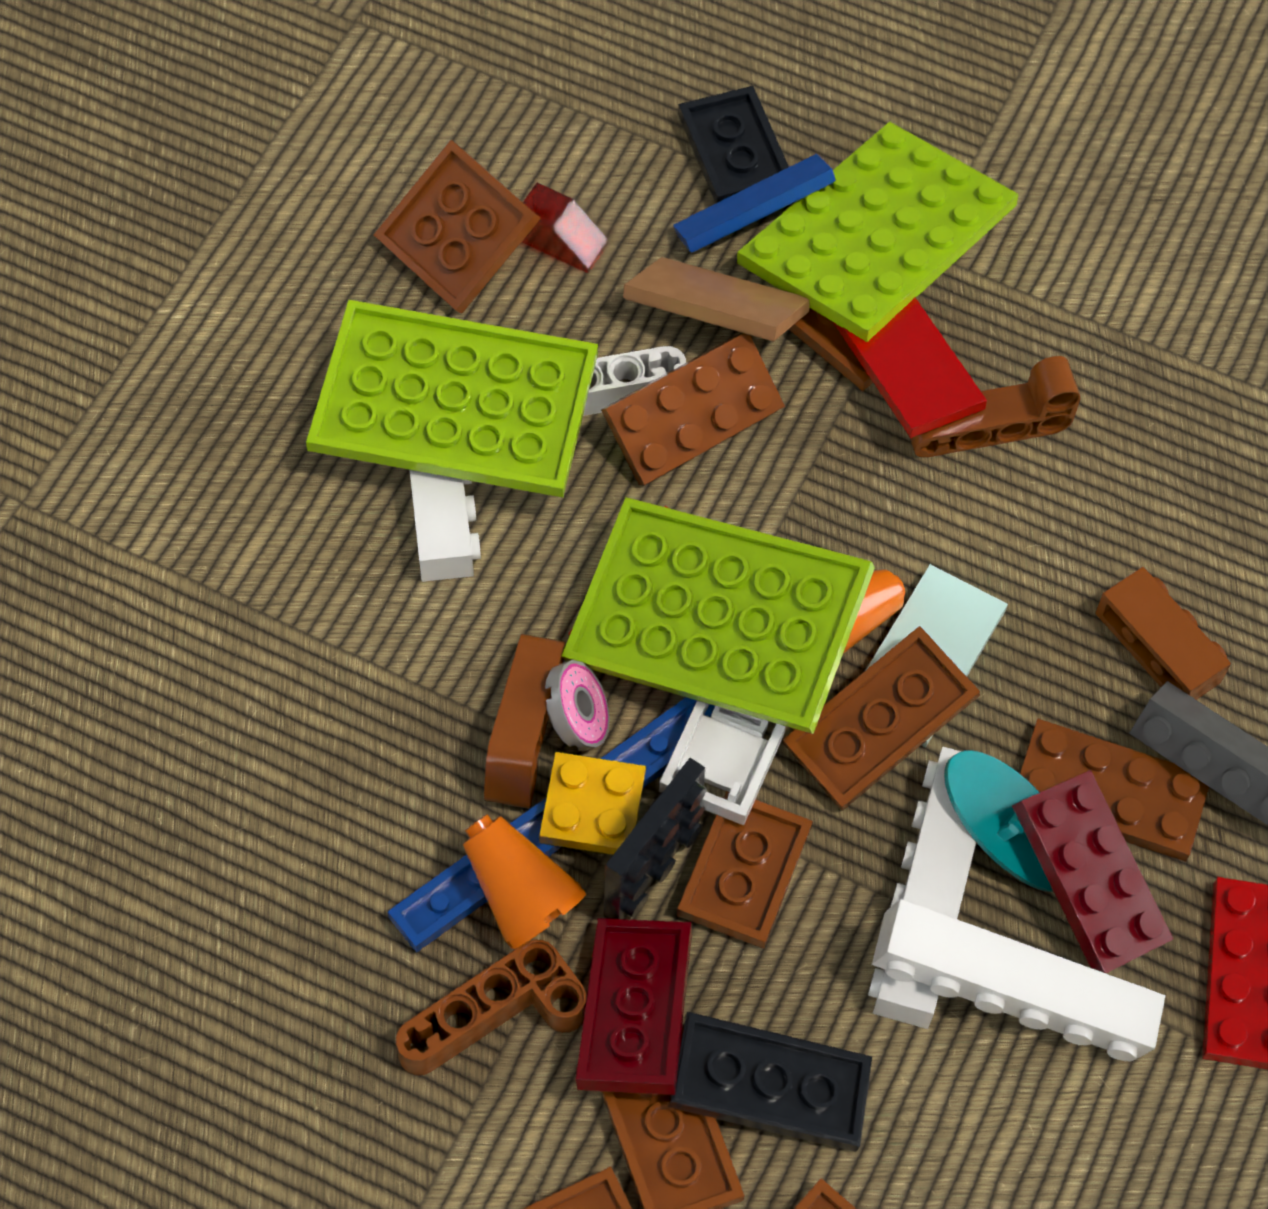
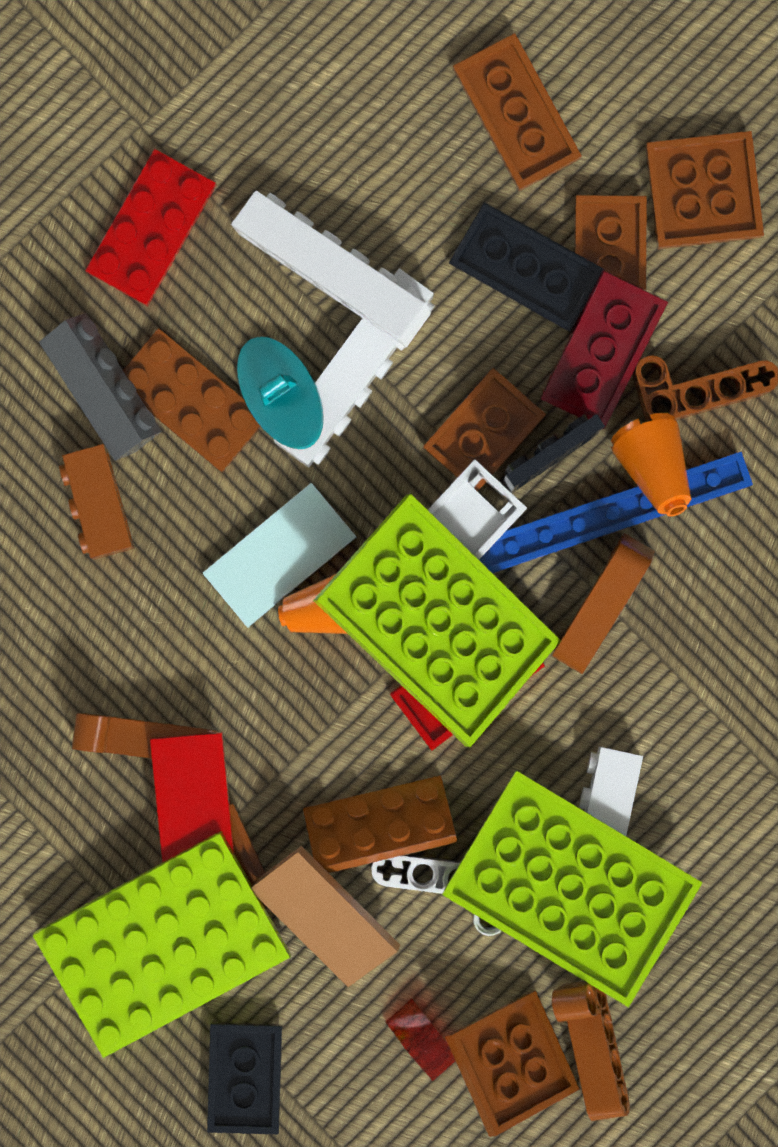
camera: 160 degrees left, 25 degrees up
(368, 266) = (594, 1048): none -> dark orange beam
(577, 705) = (561, 577): tile -> none
(591, 803) = (579, 512): yellow plate -> none
(754, 202) = (254, 1006): blue tile -> none
(882, 718) = (335, 506): dark orange plate -> none
(1092, 873) = (241, 330): dark red plate -> none

